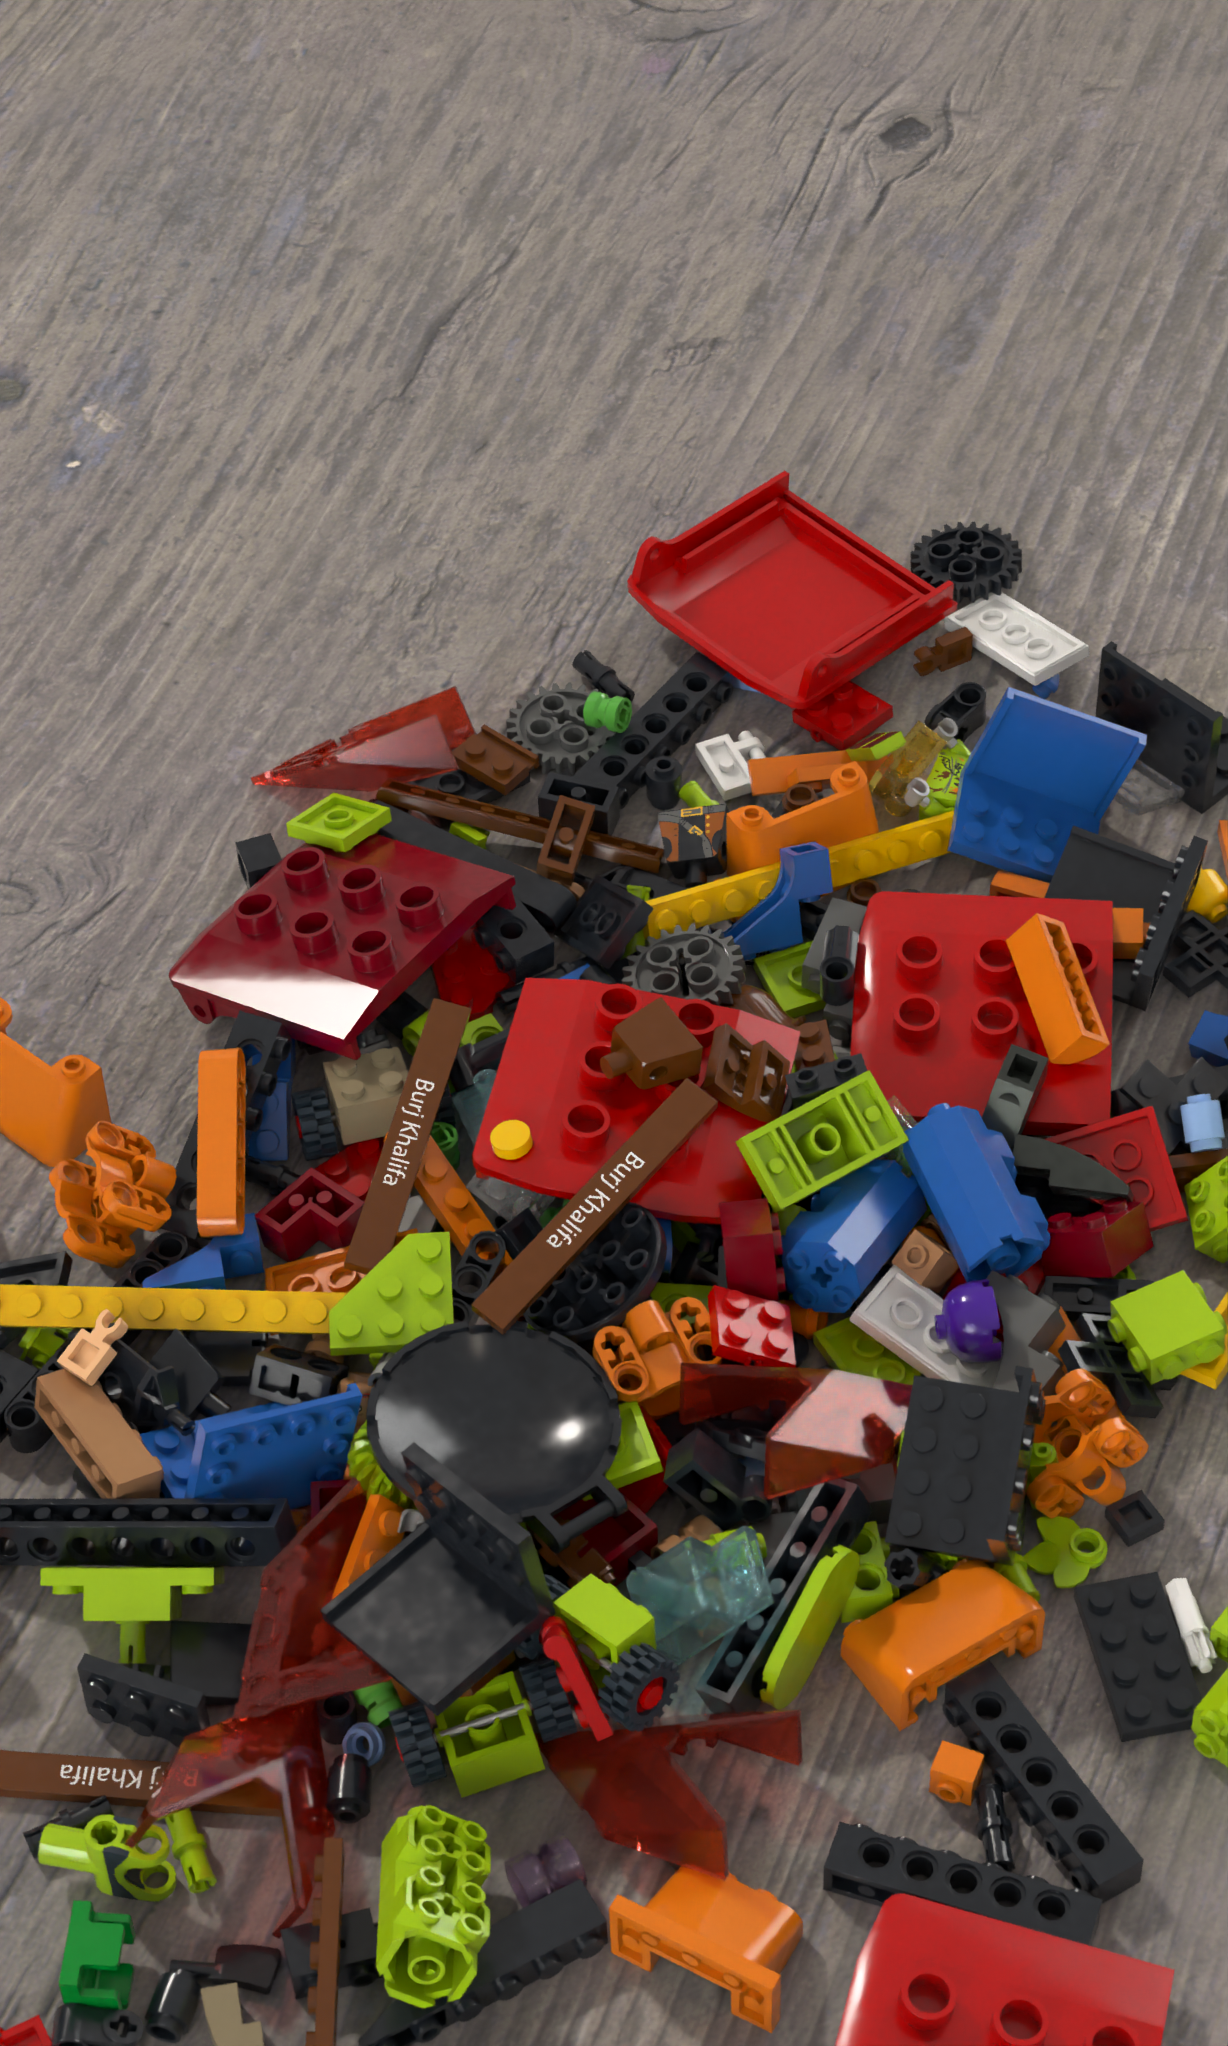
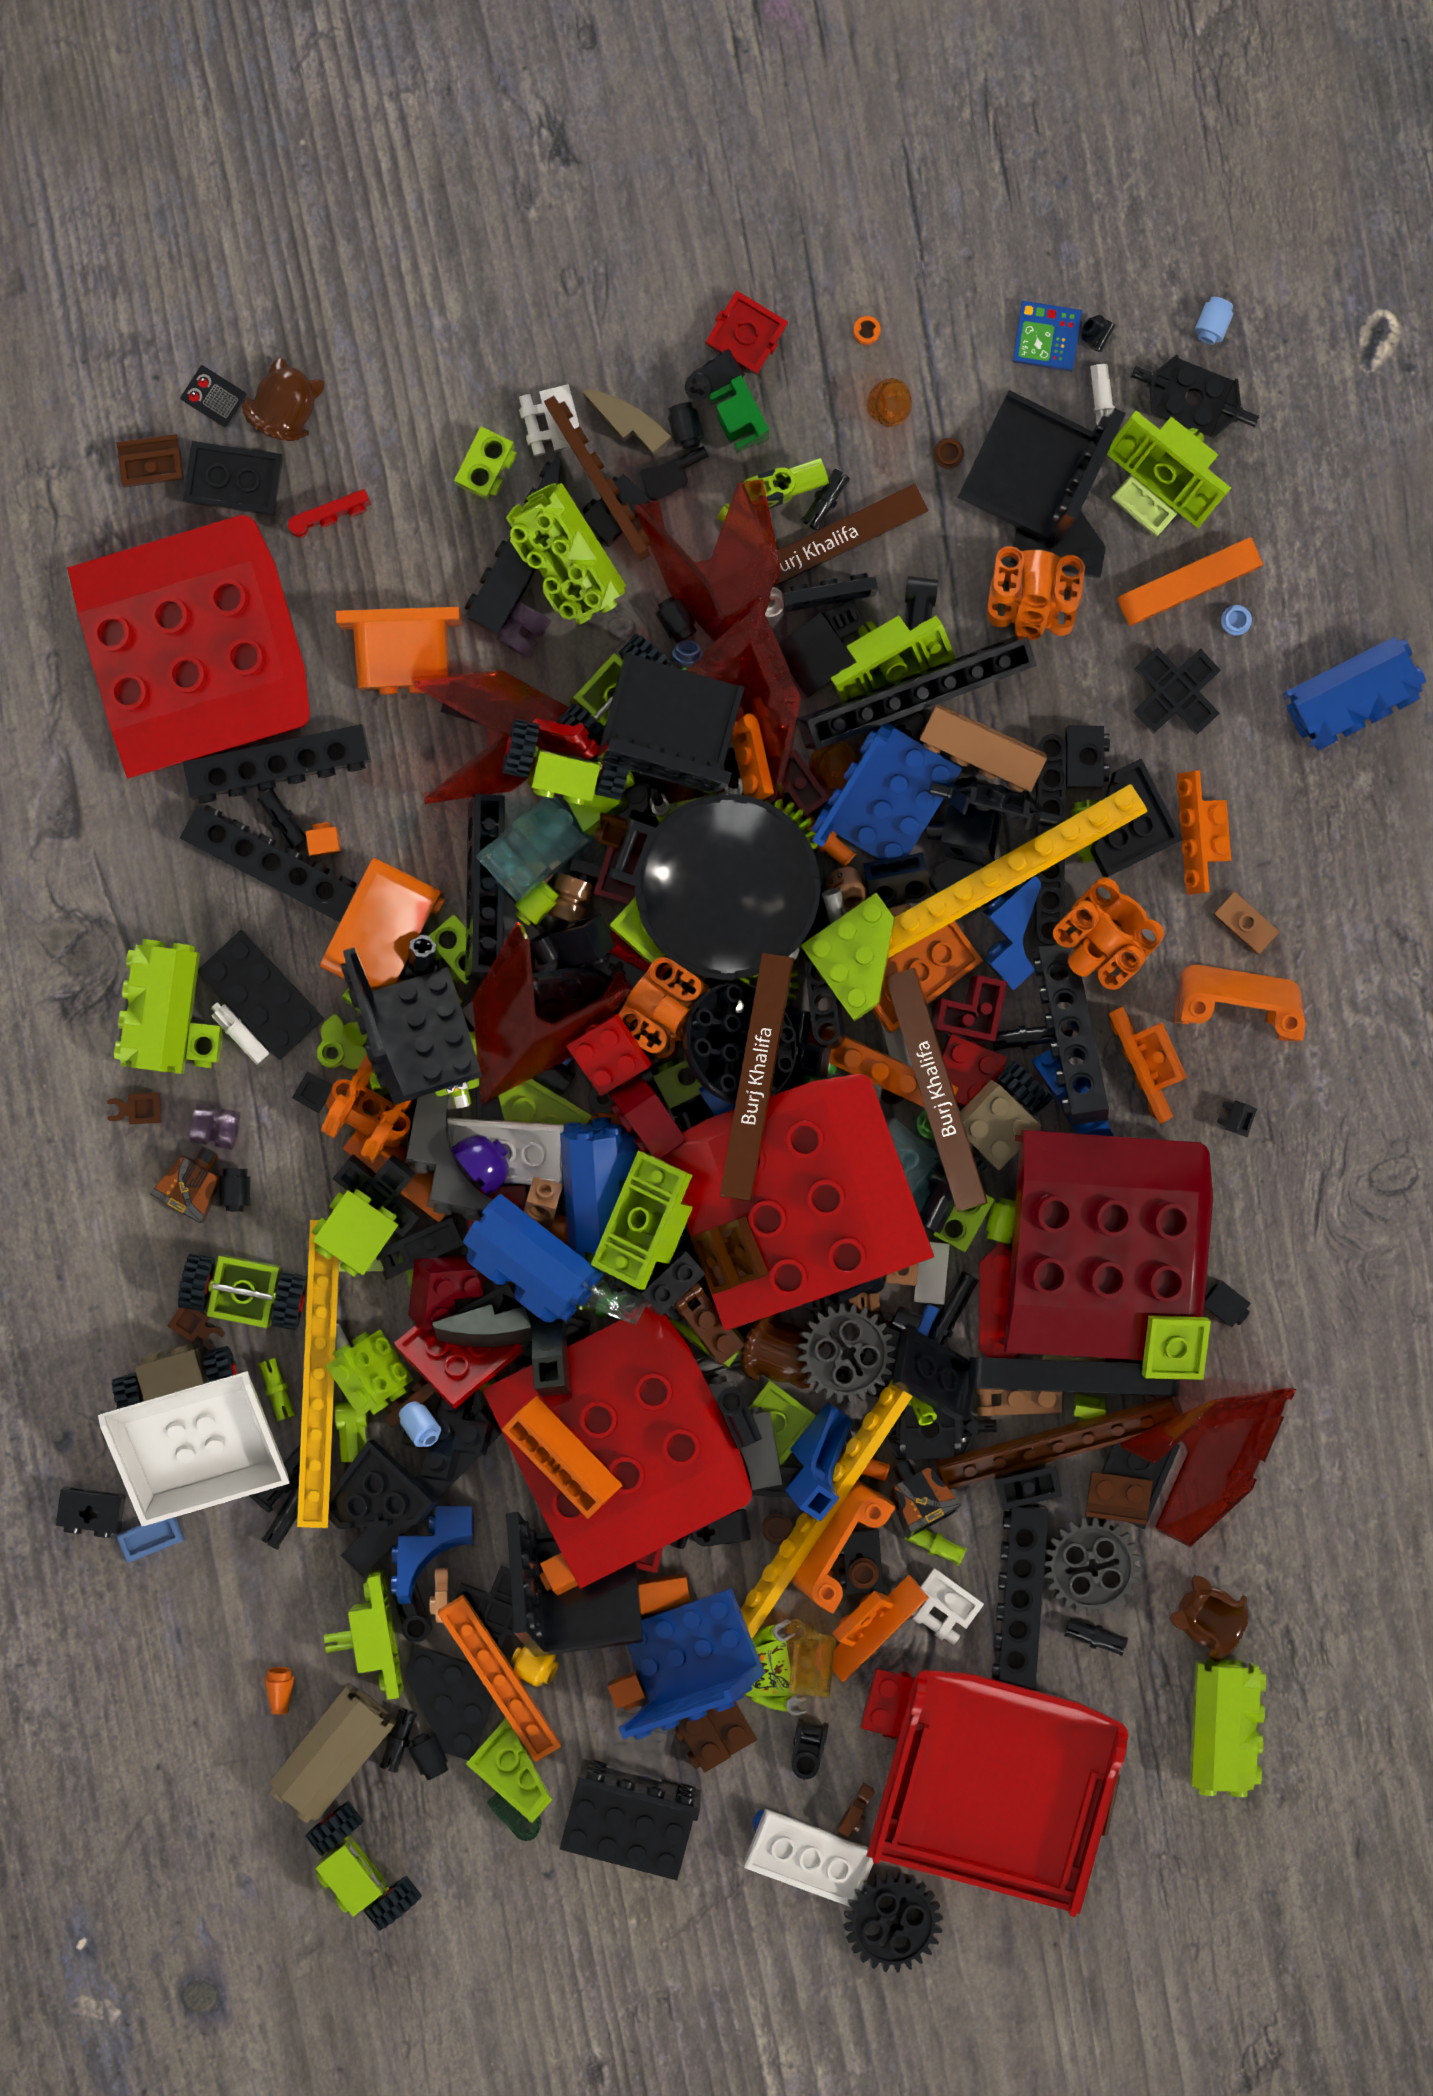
camera: 150 degrees right, 40 degrees up
(46, 1657) = (920, 600): none -> black piece
(92, 1352) = (1022, 792): light nougat plate -> none
(116, 1002) = (1240, 1118): none -> black tile
(159, 1091) = (1152, 1059): none -> orange bracket
(221, 1142) = (1057, 1009): orange beam -> none
(482, 641) = (1212, 1618): none -> reddish brown hair
(511, 1139) = (847, 1099): yellow tile -> none
(515, 941) = (972, 1321): black brick -> none
(538, 547) = (1225, 1727): none -> lime brick
(565, 840) = (1004, 1429): reddish brown brick -> none
(609, 712) = (1056, 1580): bright green wheel -> none
(652, 1048) = (793, 1218): reddish brown torso -> none
(663, 782) = (978, 1541): black brick -> none
(809, 1626) = (458, 875): lime tile -> none
(876, 746) = (837, 1657): lime tile -> none
(1120, 827) = (626, 1691): none -> orange plate

